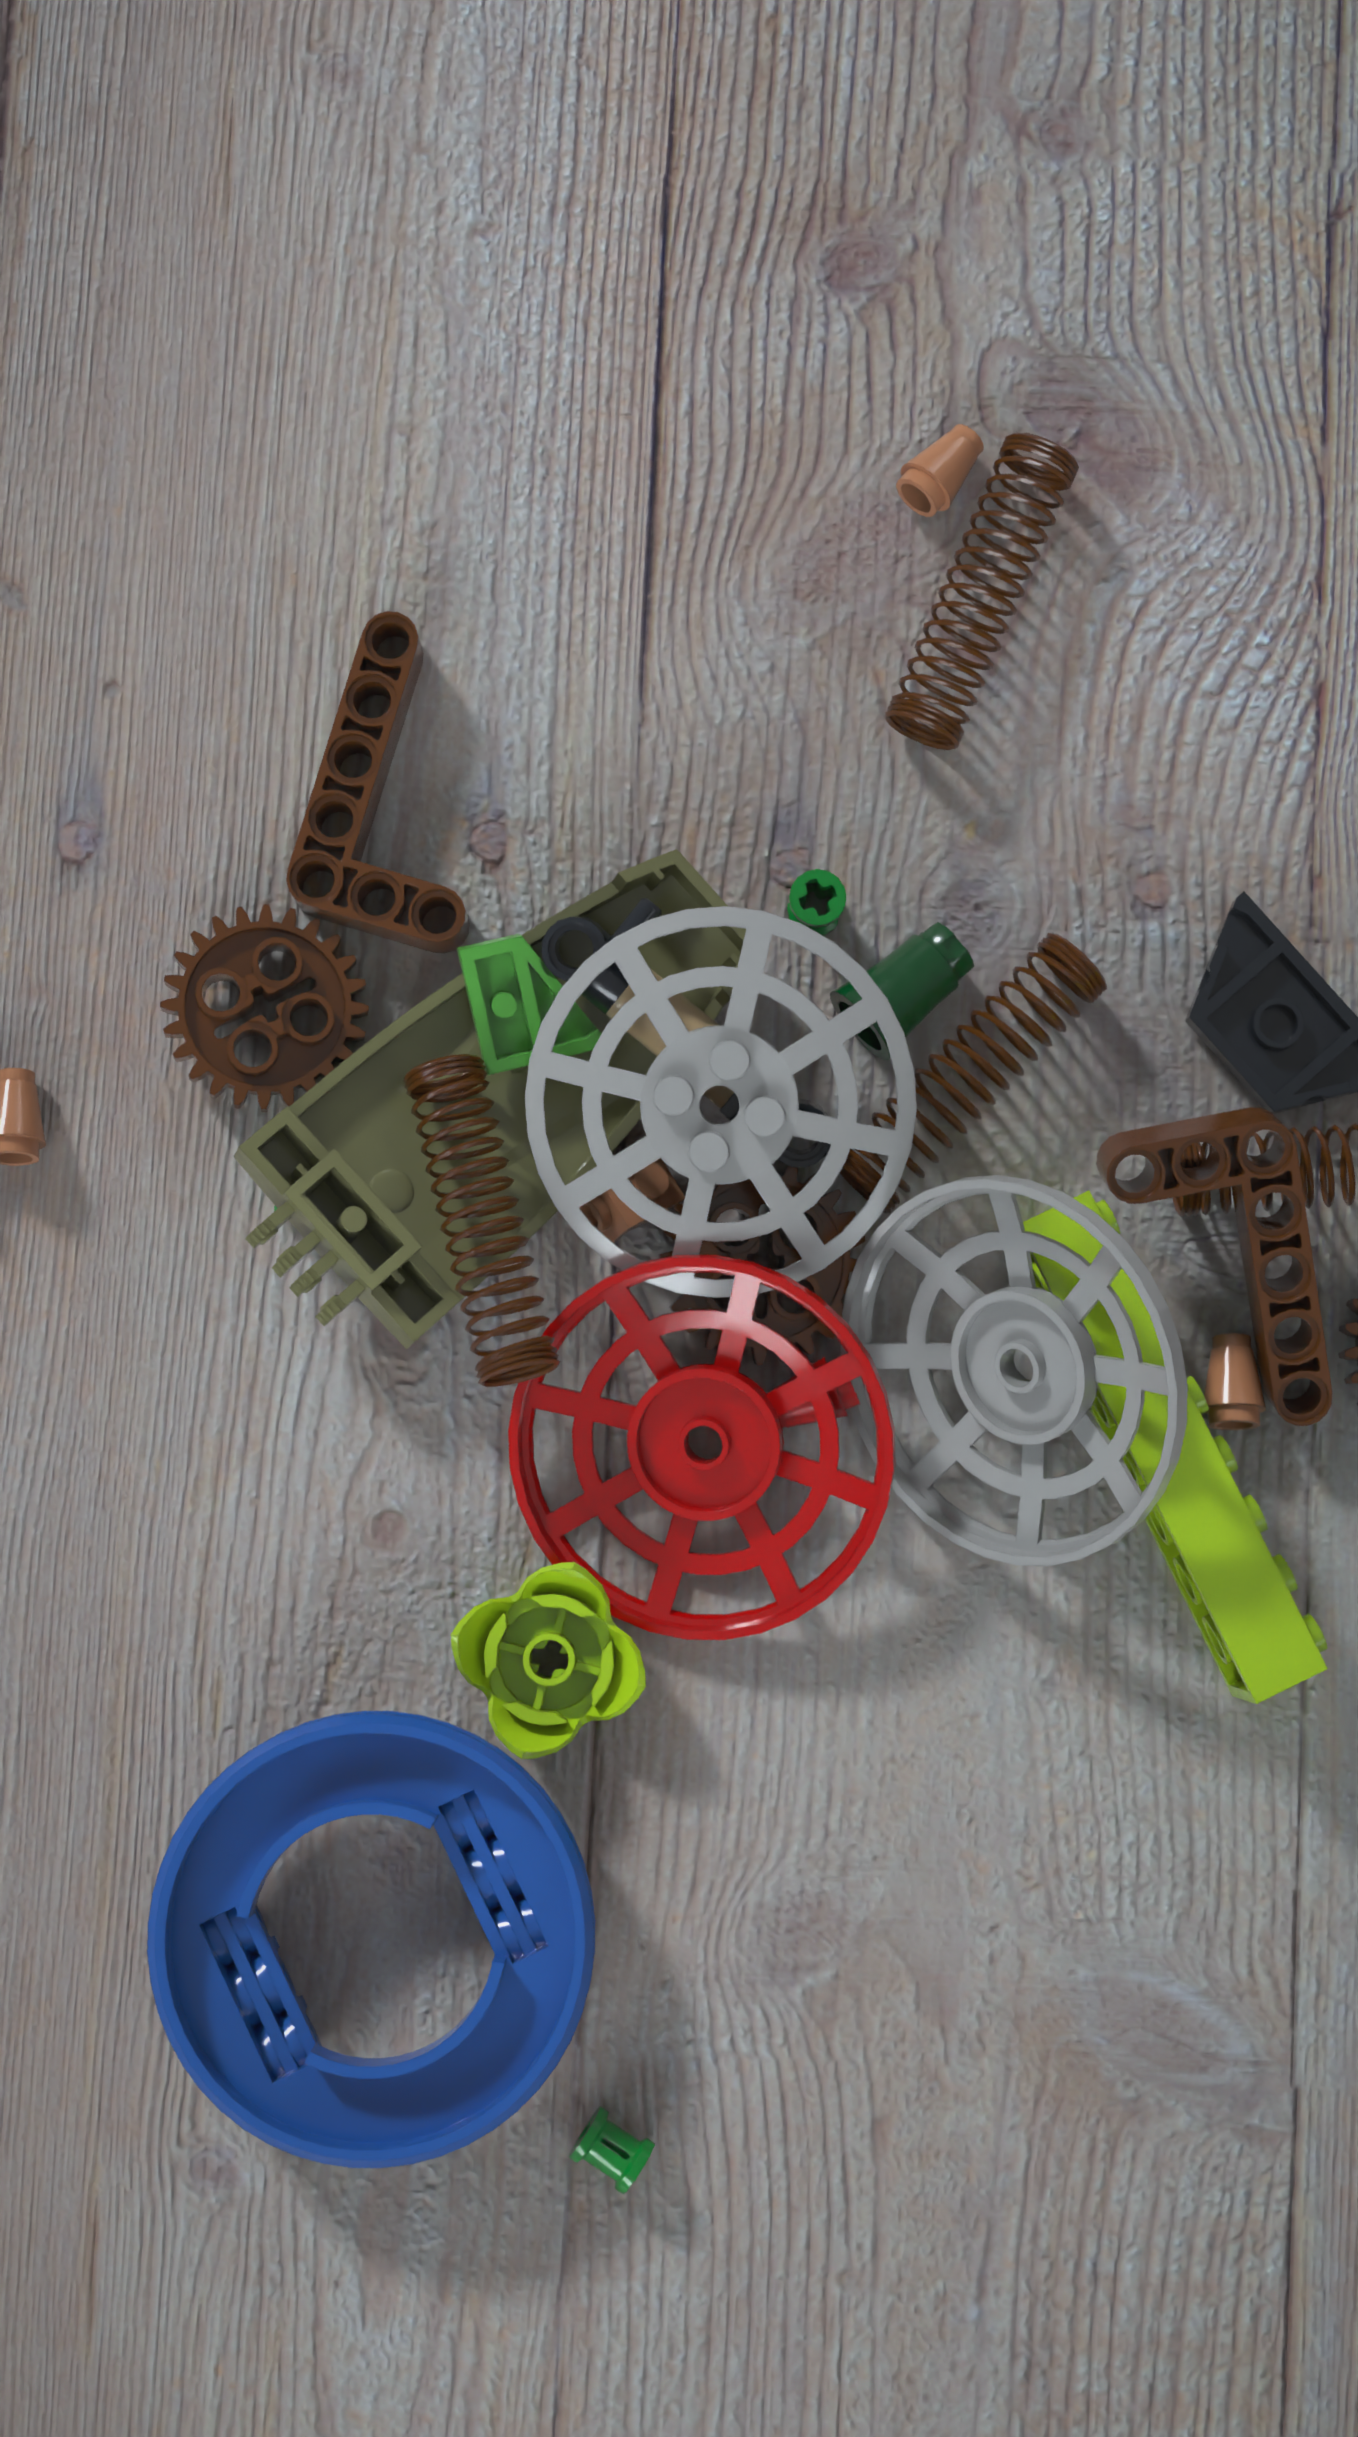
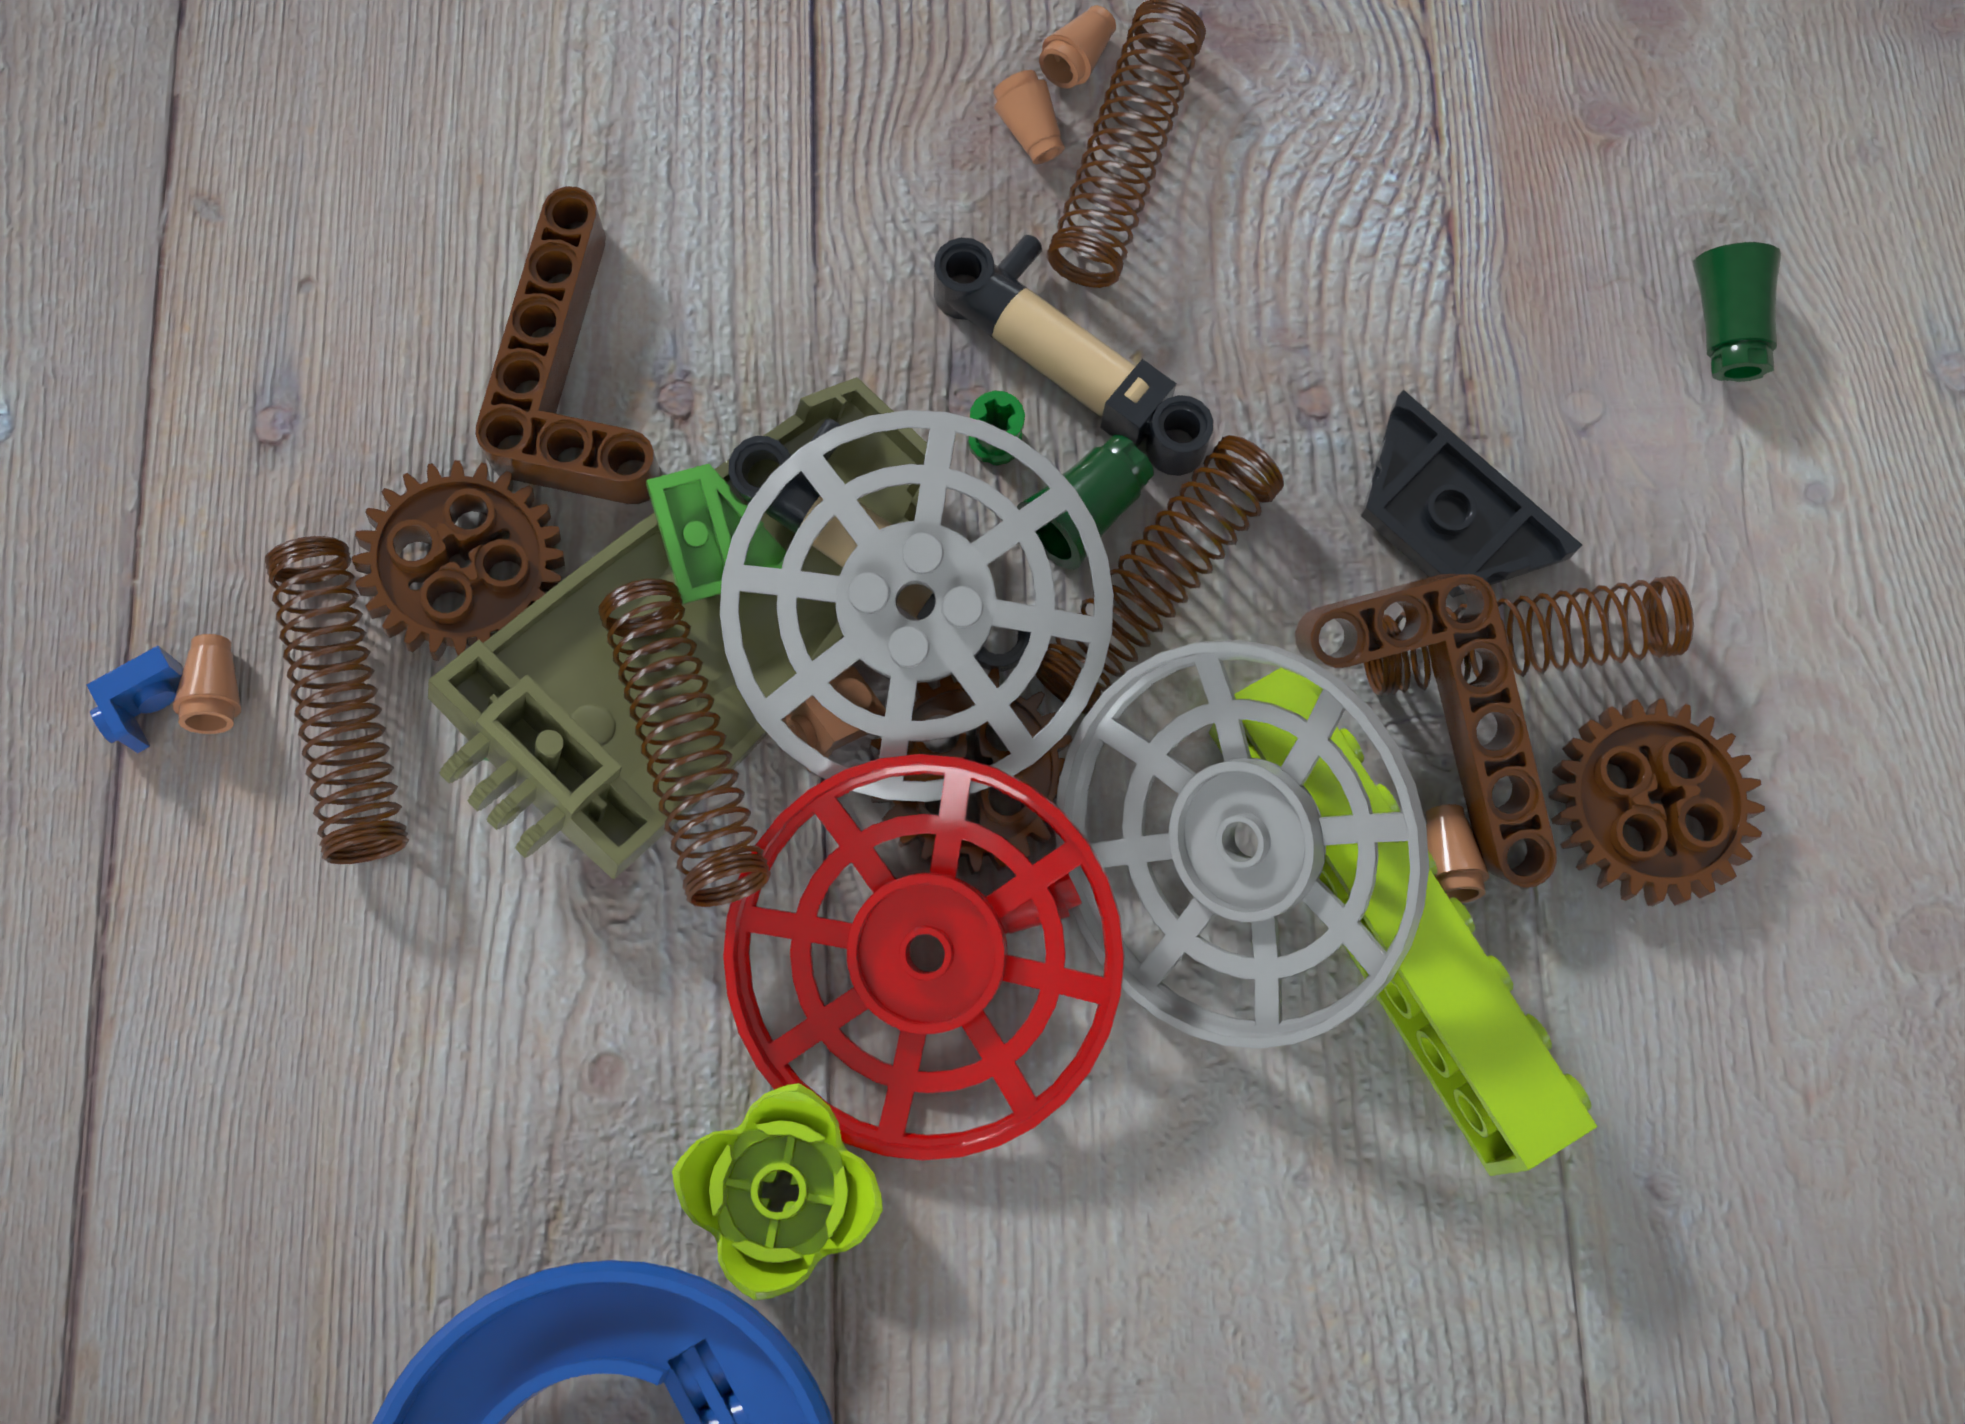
camera: 10 degrees left, 10 degrees down
(113, 1000) = (377, 837): none -> reddish brown piece
(881, 549) = (1029, 115): none -> nougat cone
(955, 879) = (1127, 397): none -> black piece

